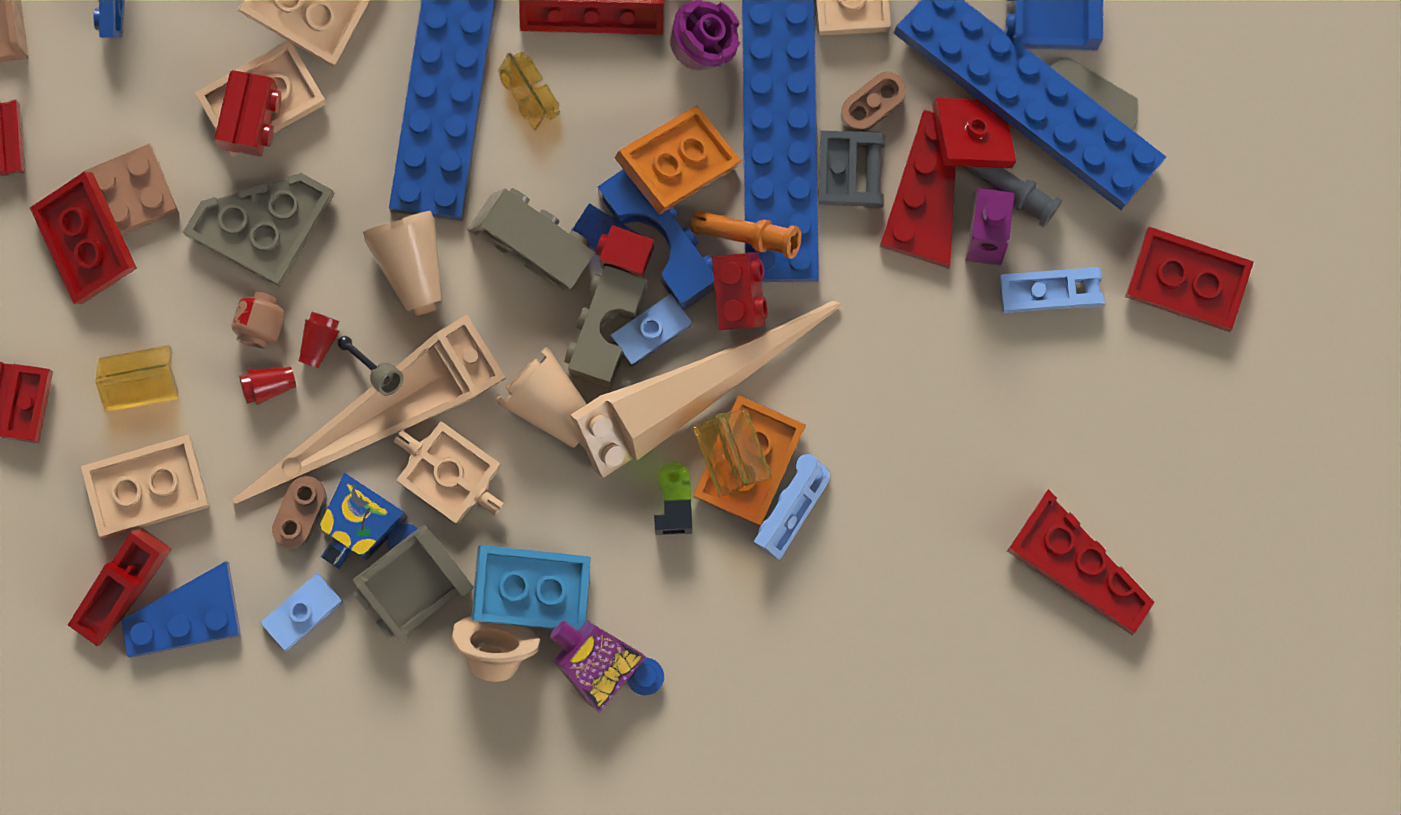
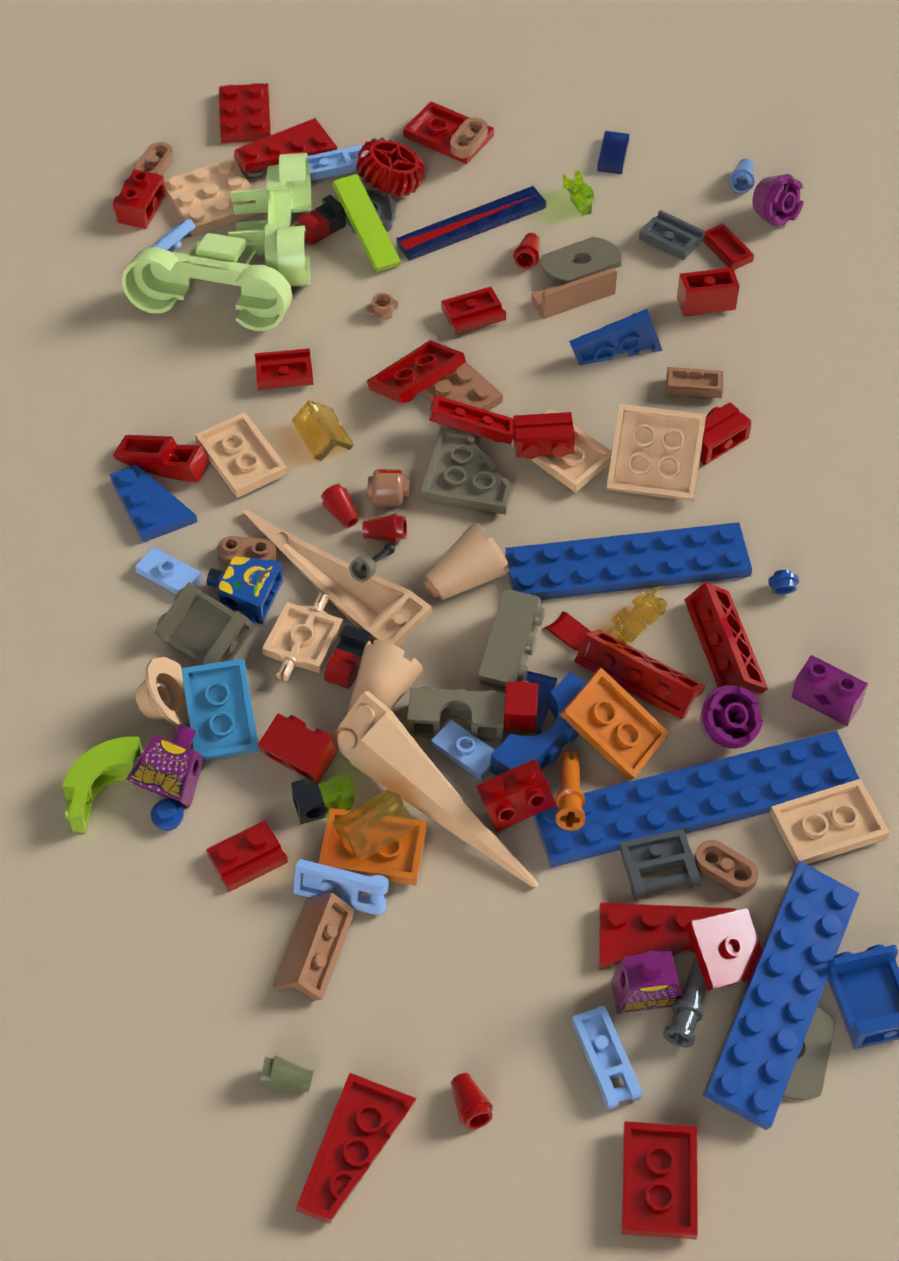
camera: 75 degrees right, 25 degrees down
(186, 191) = (471, 419): none -> red plate
(496, 428) = (346, 659): none -> red leg
(524, 168) = (568, 630): none -> red piece
(564, 738) = (95, 771): none -> lime arch
(606, 511) = (298, 747): none -> red brick
(609, 114) = (639, 673): none -> red fence
(719, 599) = (247, 855): none -> red plate
(850, 552) = (315, 946): none -> nougat panel
(991, 615) = (284, 1076): none -> olive cone
(1065, 436) = (471, 1103): none -> red cone

